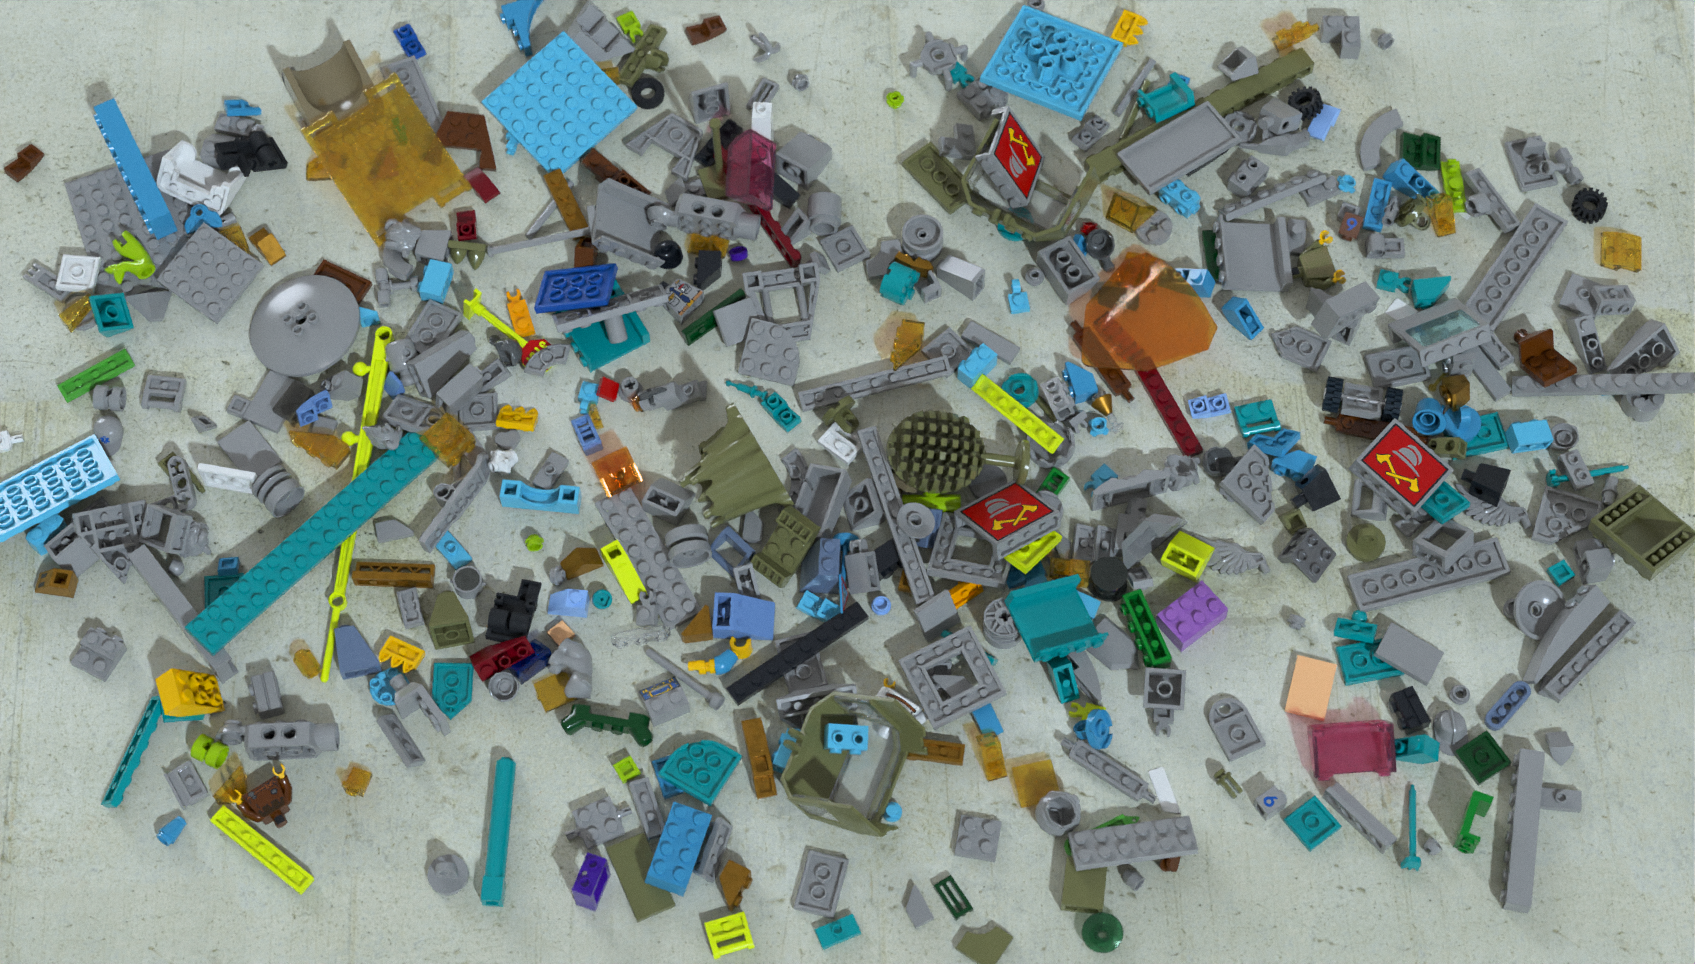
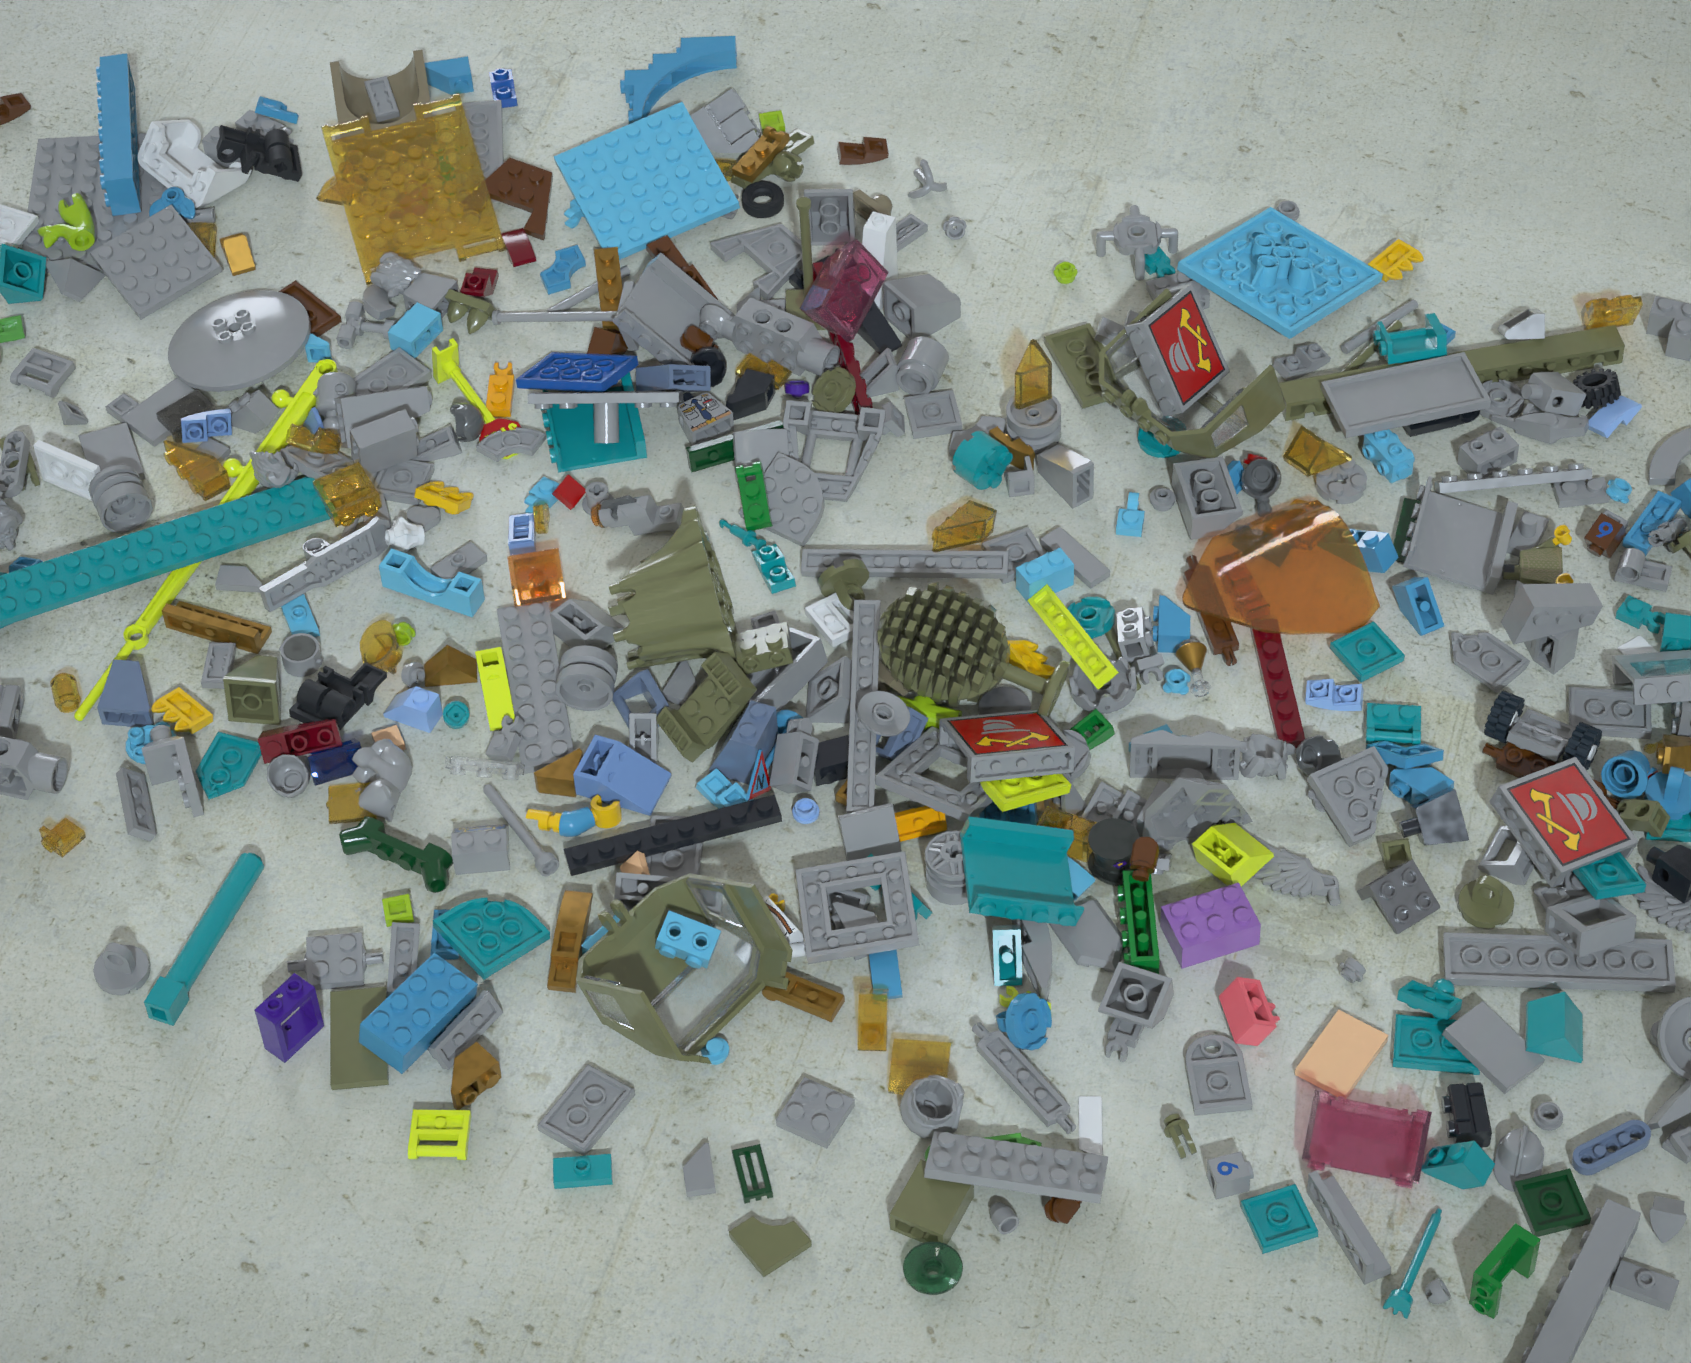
camera: 20 degrees right, 15 degrees down
(329, 85) = (381, 99): none -> light grey plate
(367, 41) = (450, 75): none -> dark azure slope
(403, 400) = (321, 442): none -> clear yellow slope
(523, 187) = (559, 274): none -> dark azure tile
(525, 560) = (381, 647): none -> clear yellow piece
(635, 57) = (761, 154): none -> pearl gold plate
(648, 275) = (673, 378): none -> sand blue slope
(652, 235) = (695, 339): none -> reddish brown arm
(736, 82) = (866, 205): none -> dark tan tile
(747, 359) = (754, 497): none -> green plate
(768, 251) = (834, 390): none -> olive tile
(780, 687) = (635, 864): none -> light nougat tile
(808, 488) = (764, 648): none -> olive plate
(920, 209) = (1033, 377): none -> clear yellow slope
(992, 440) = (1024, 657): none -> yellow plate
(1136, 584) = (1144, 858): none -> reddish brown arm
(1220, 365) = (1367, 651): none -> teal plate
(1241, 676) = (1248, 1011): none -> coral brick
(1442, 627) = (1555, 1027): none -> teal slope

